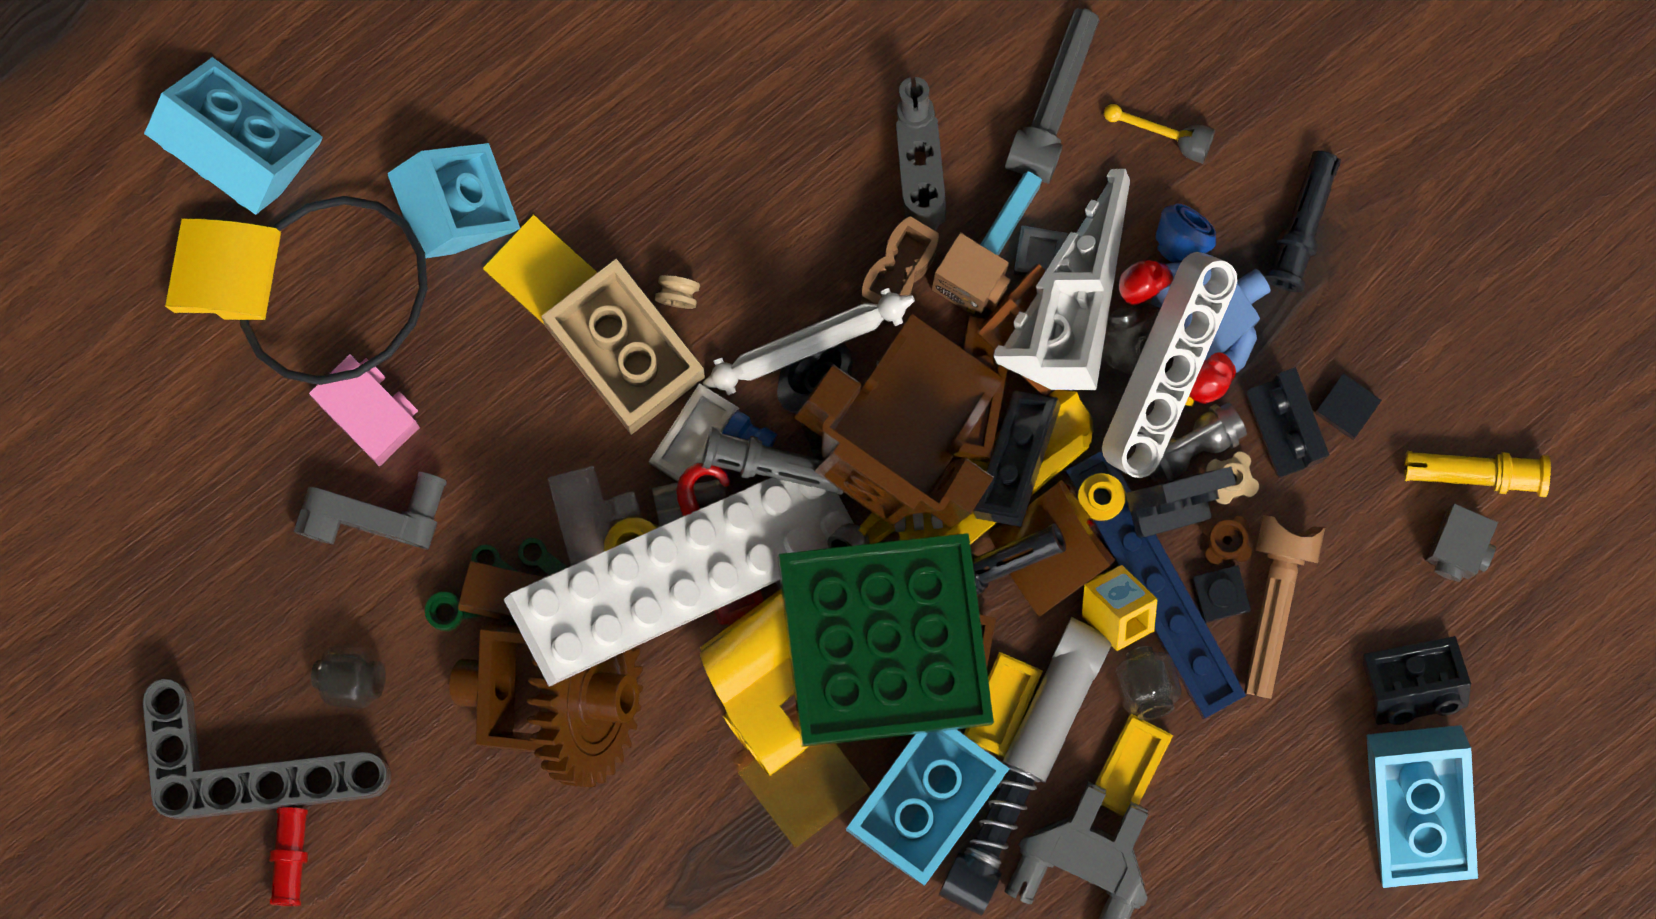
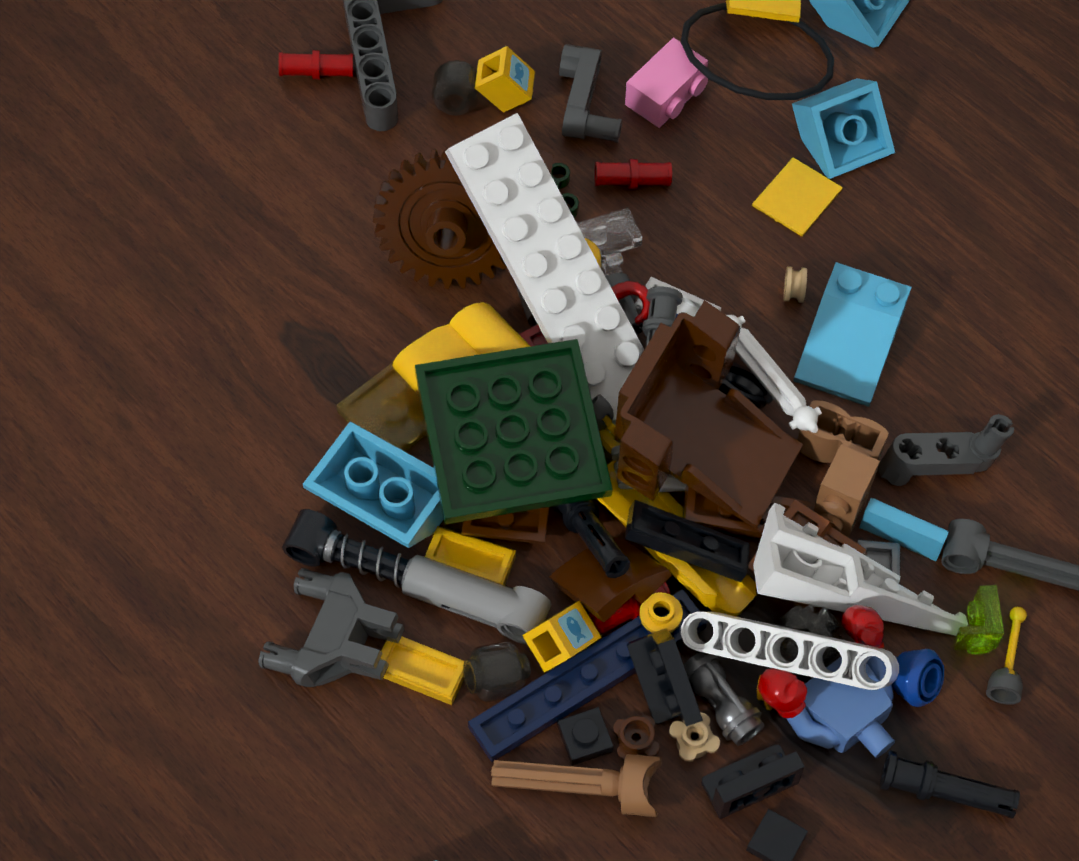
camera: 90 degrees right, 20 degrees down
(349, 613) = (504, 79): none -> yellow brick
(498, 467) = (633, 173): none -> red pin
(623, 346) = (741, 243): tan brick -> none
(753, 236) = (852, 334): none -> medium azure slope
(1120, 148) = (985, 623): none -> clear neon green bracket

